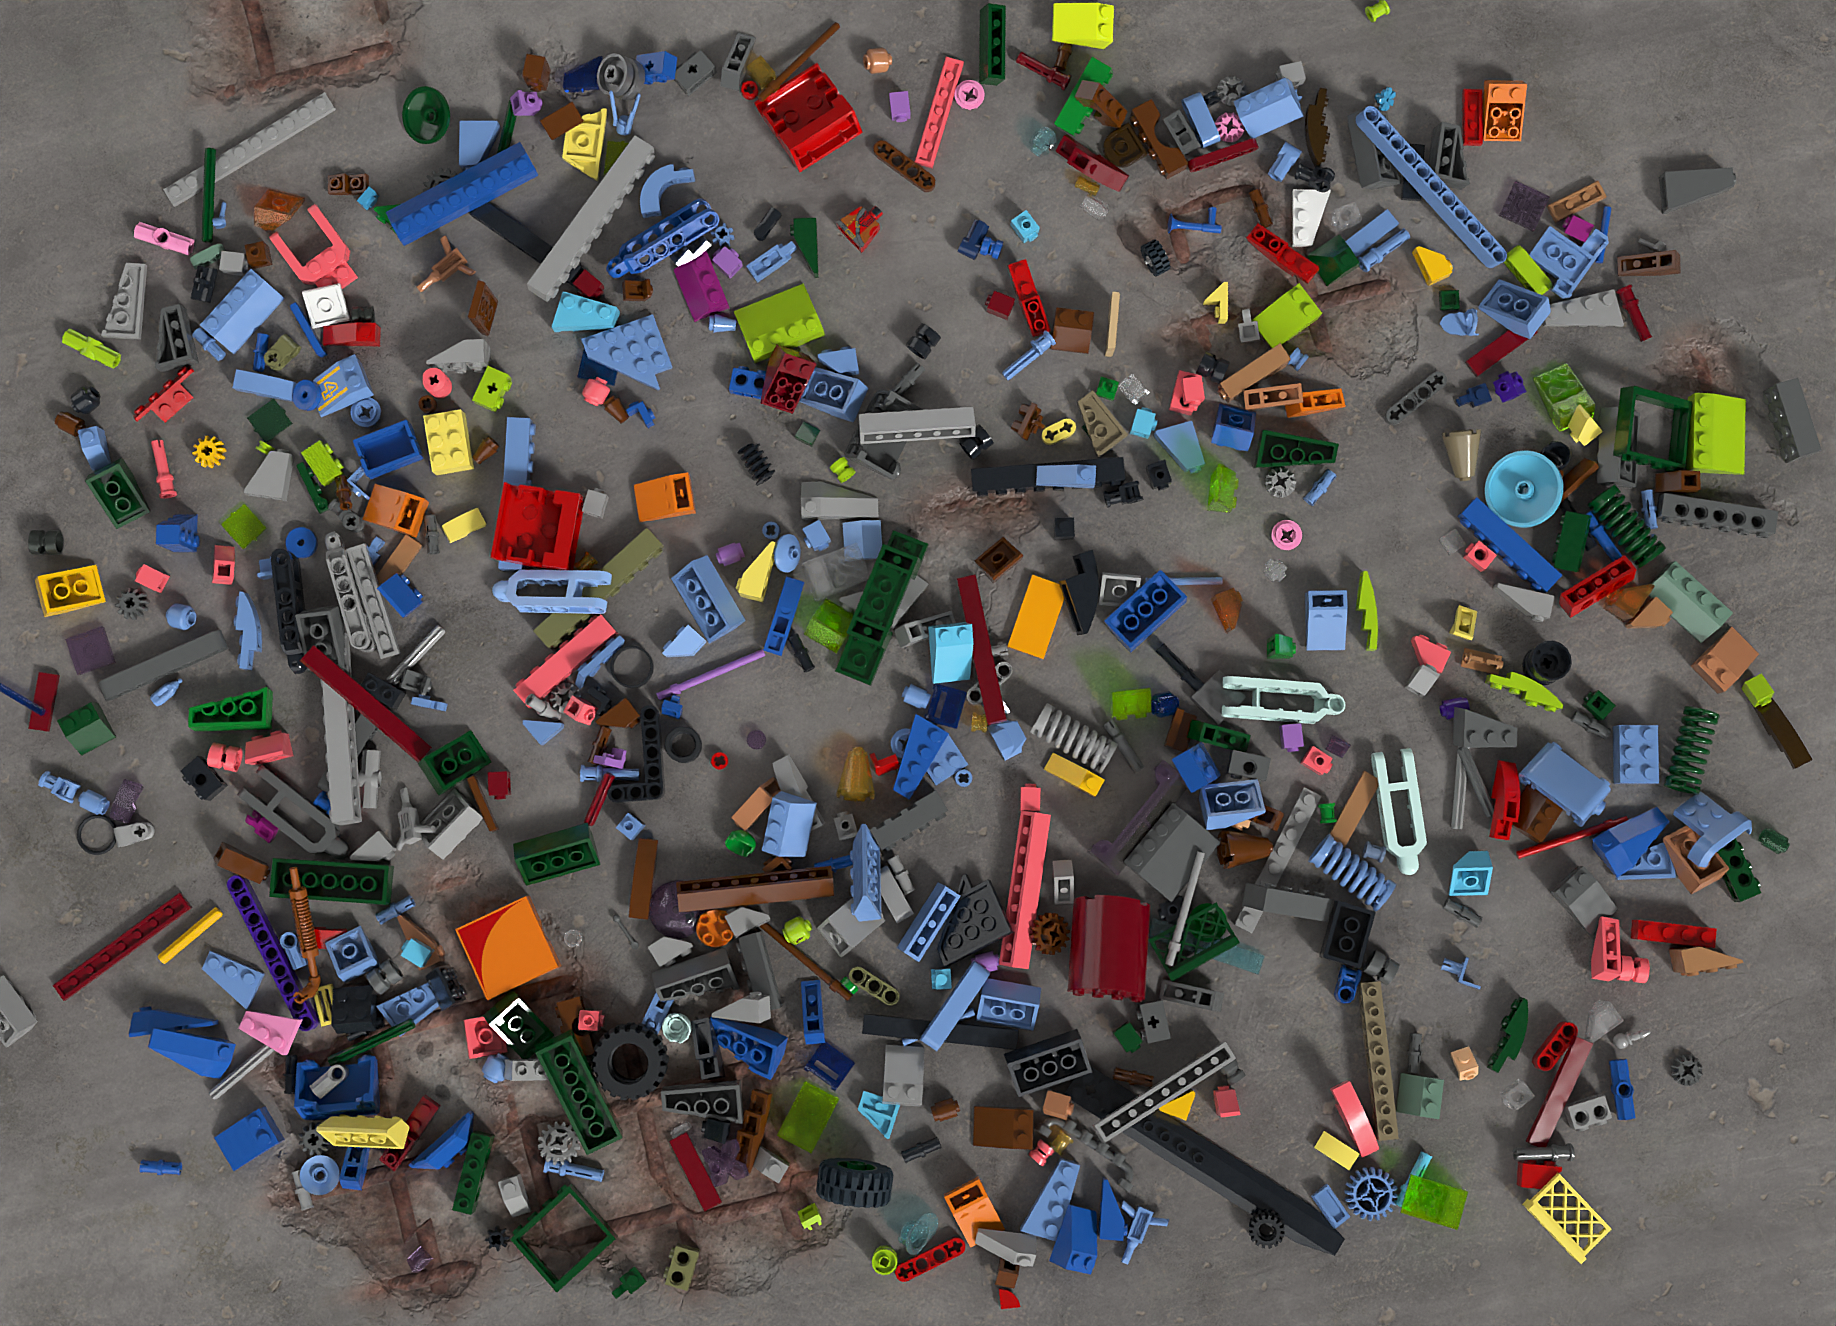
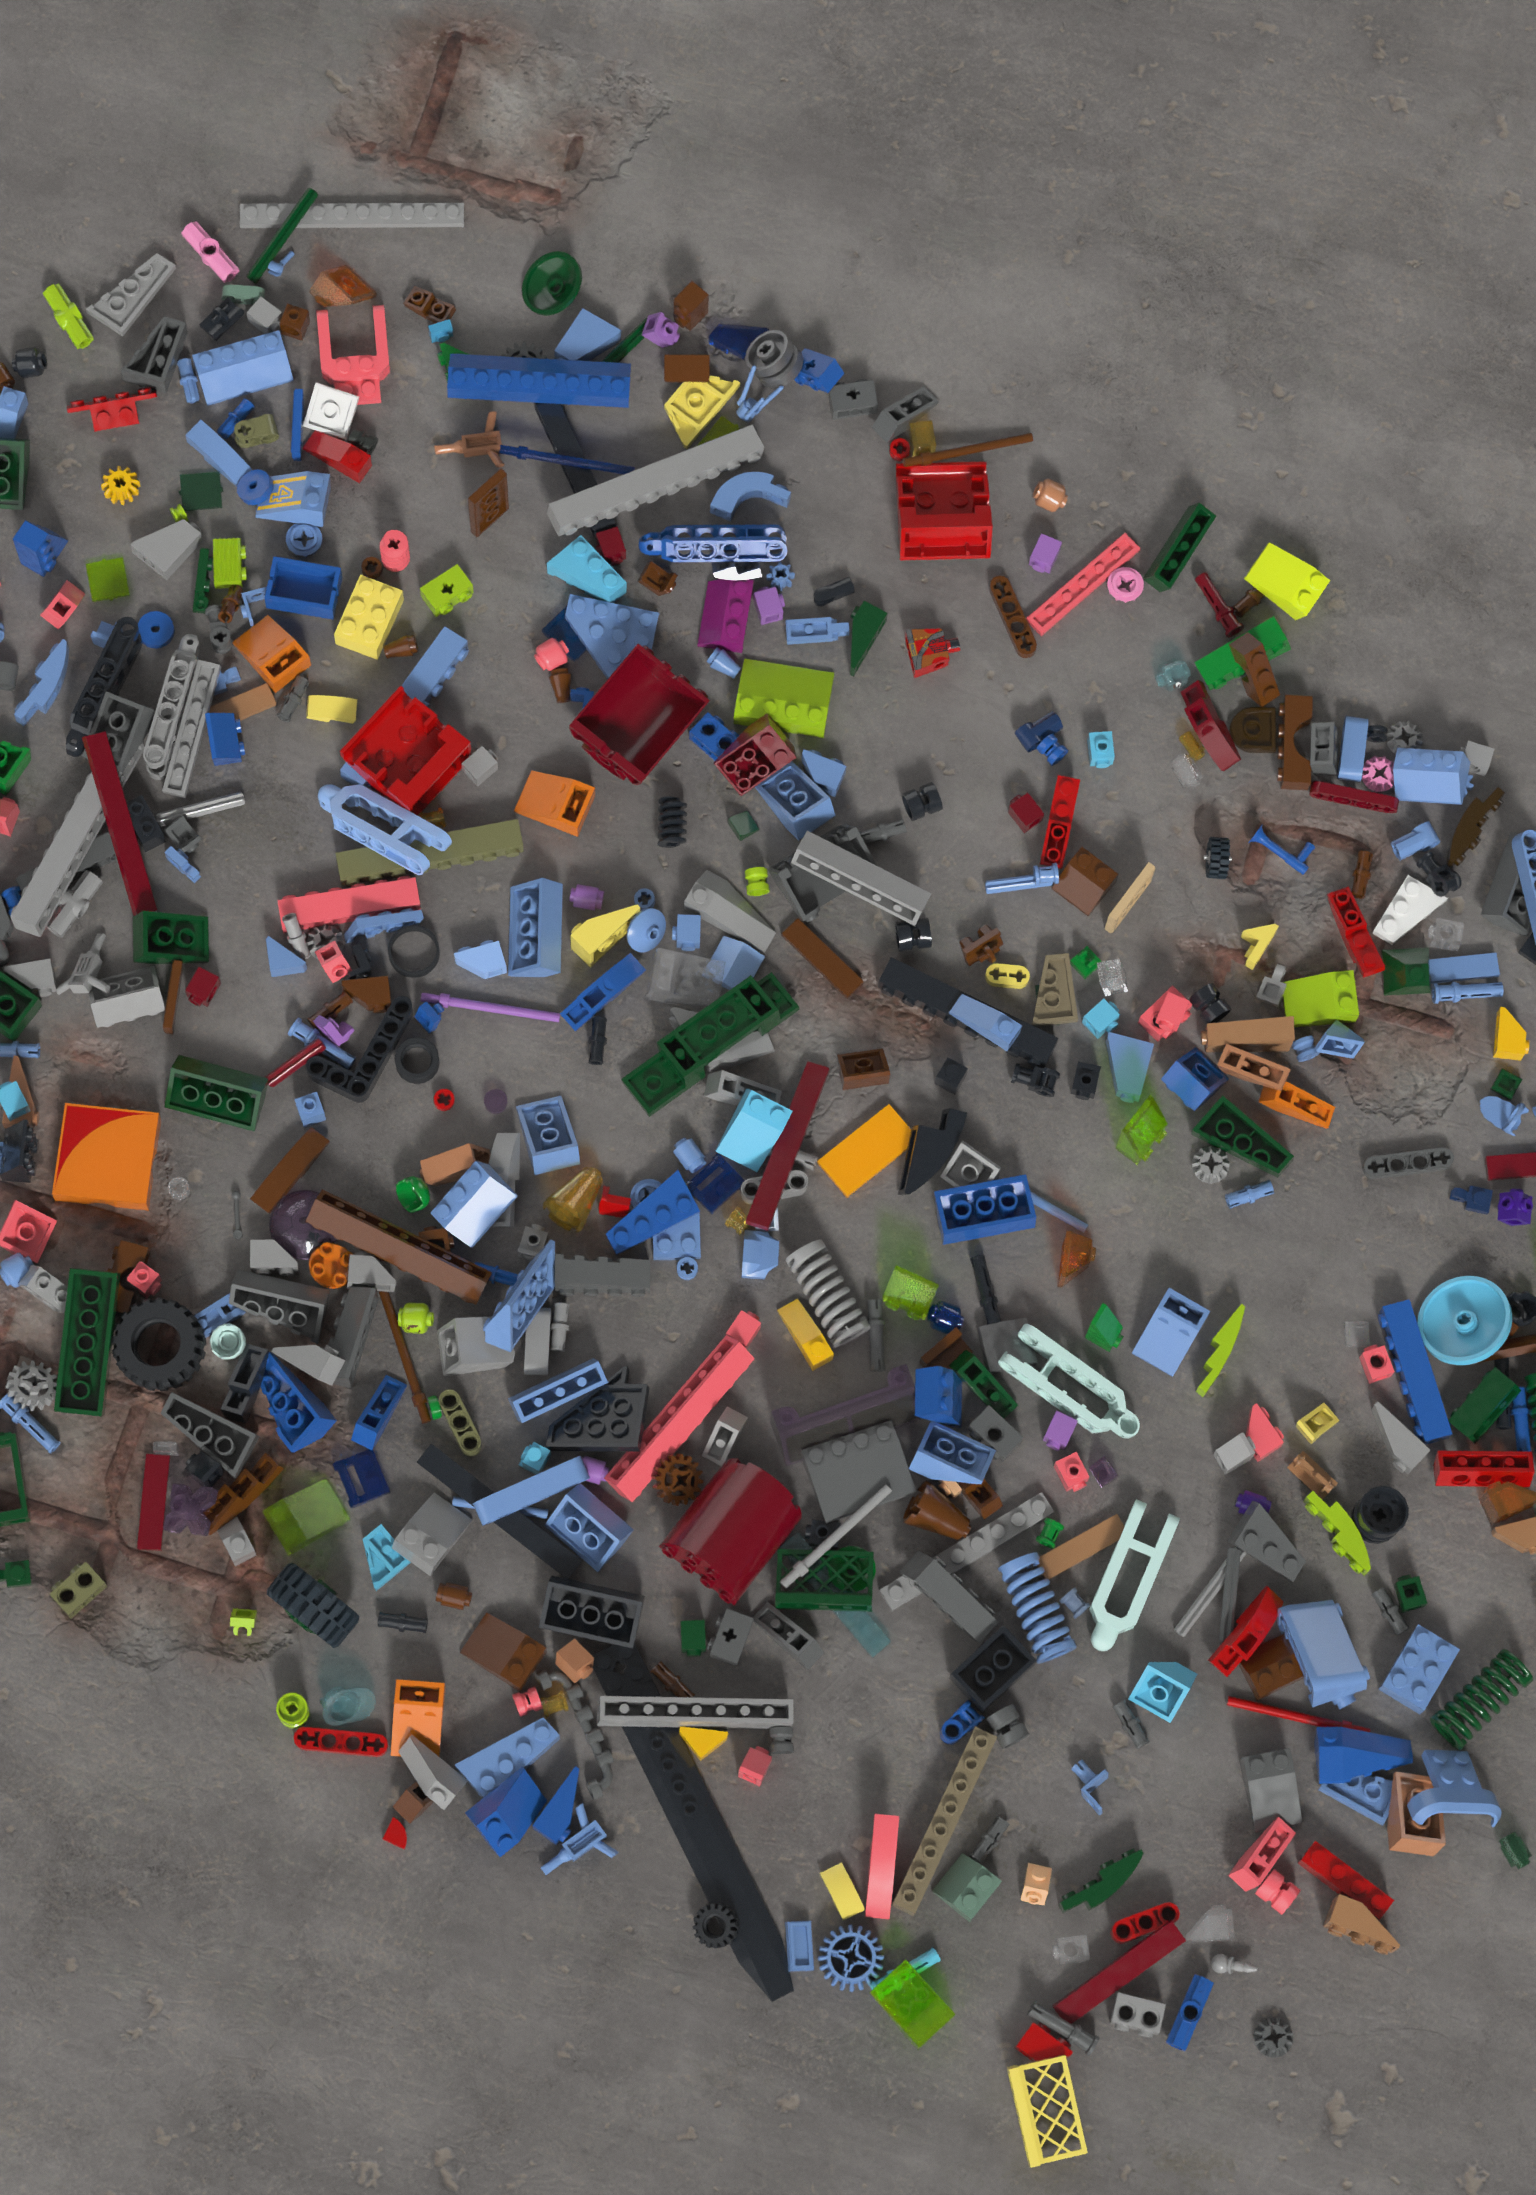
camera: 25 degrees right, 10 degrees down
(164, 477) = (59, 484): coral pin -> none
(463, 357) = (438, 541): light grey slope -> none
(484, 255) = (523, 453): none -> clear blue bar
(517, 1025) = (66, 1238): dark green slope -> none
(686, 400) = (637, 715): none -> dark red cylinder
(808, 742) = (548, 1135): none -> medium blue slope
(829, 626) = (642, 1029): clear neon green slope -> none
(921, 497) = (822, 958): none -> reddish brown tile
(1275, 570) = (1148, 1249): clear gear -> none
(1295, 537) = (1190, 1214): bright pink gear -> none
(1318, 339) = (1340, 1041): none -> medium blue slope
(1462, 451) = (1423, 1245): dark tan cone -> none
(1751, 885) = (1444, 1880): dark green brick -> none

